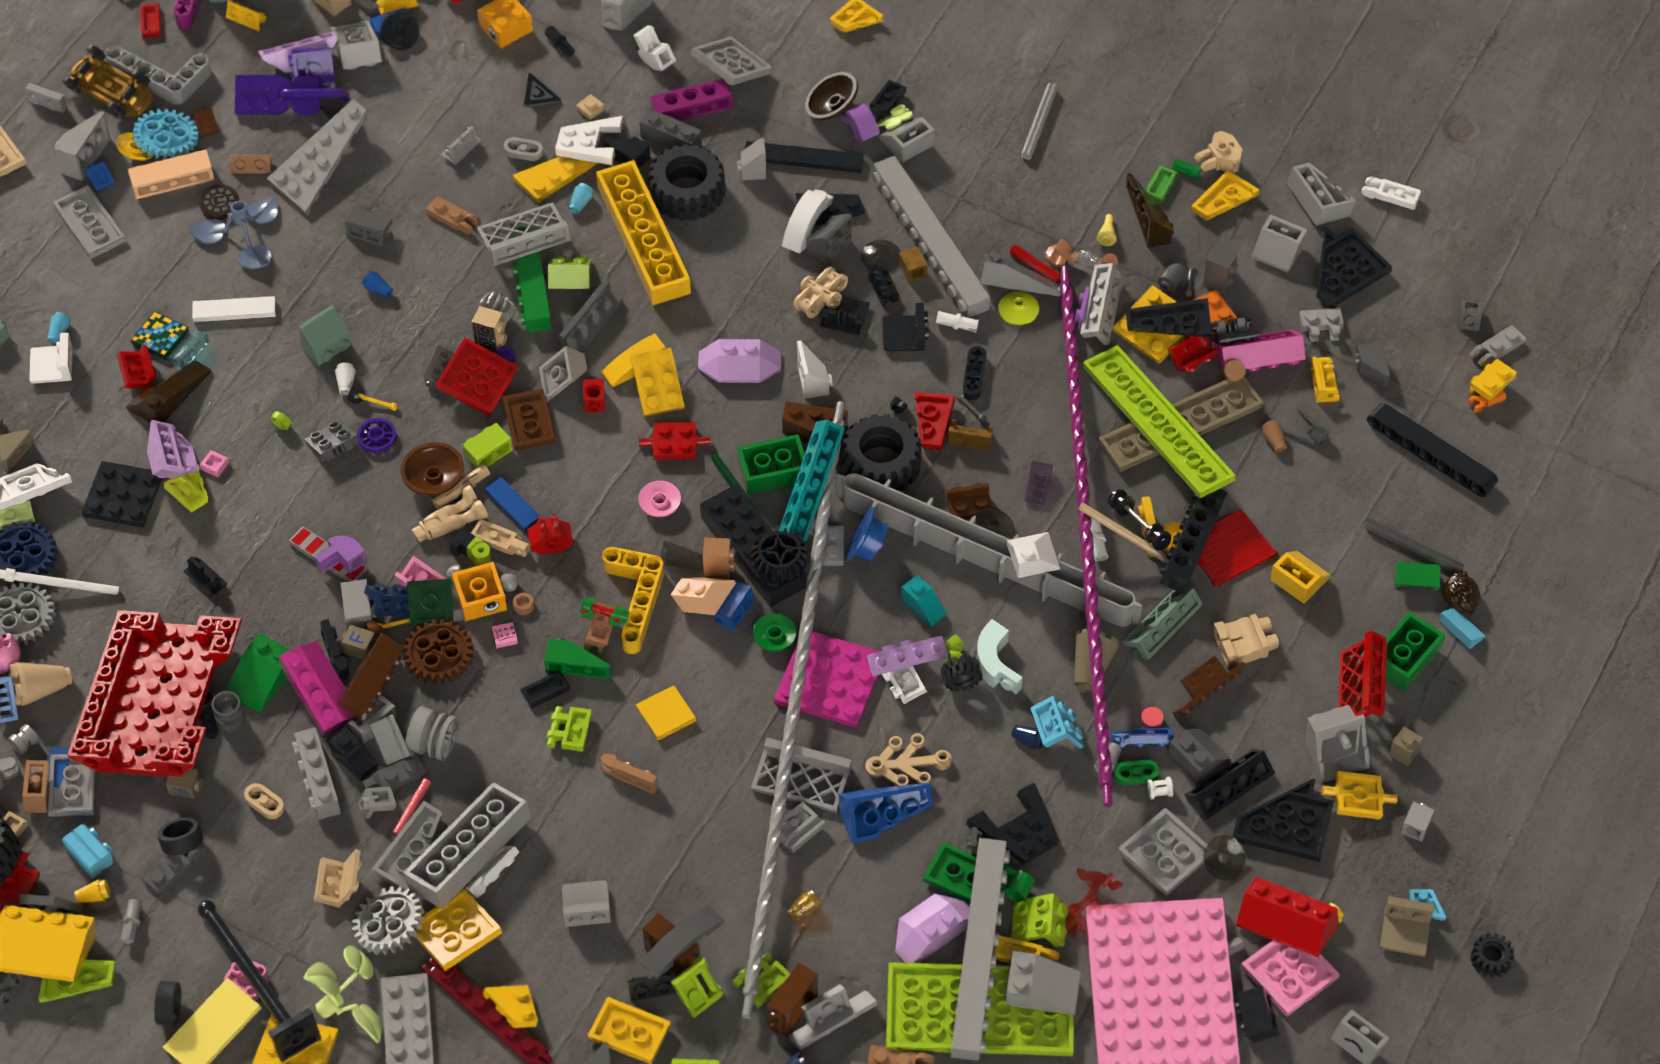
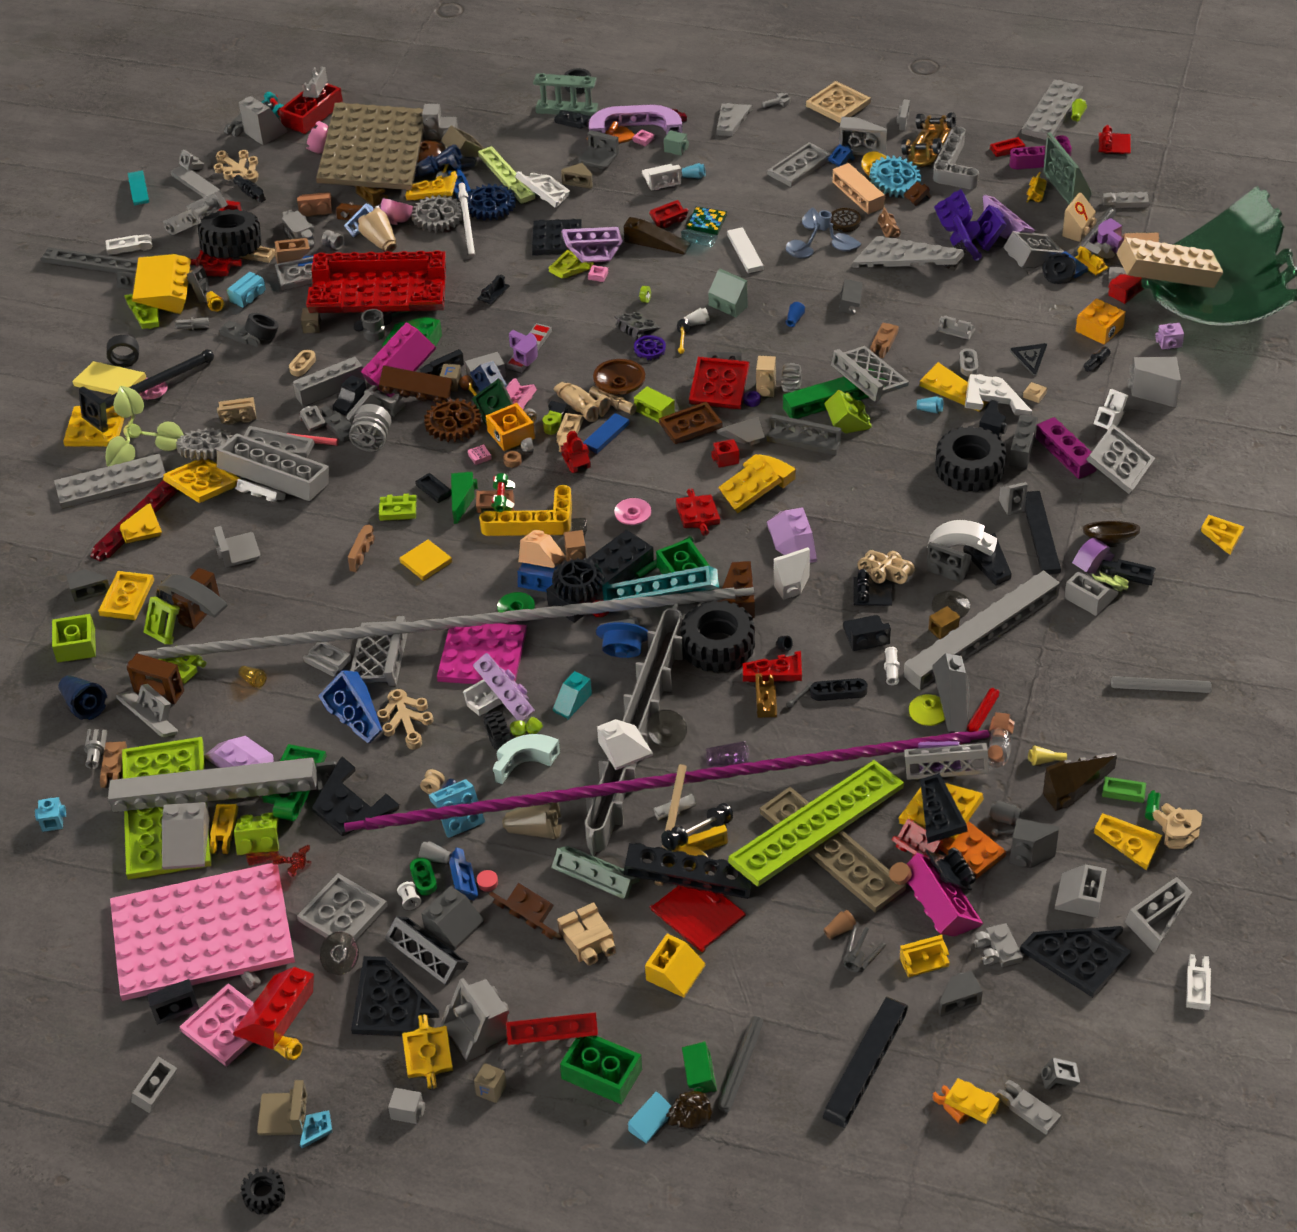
camera: 80 degrees right, 10 degrees down
(643, 233) = (900, 445): yellow brick -> none
(880, 279) = (908, 611): black hinge -> none
(968, 500) = (691, 709): reddish brown bracket -> none
(1011, 746) = (432, 781): none -> tan wheel

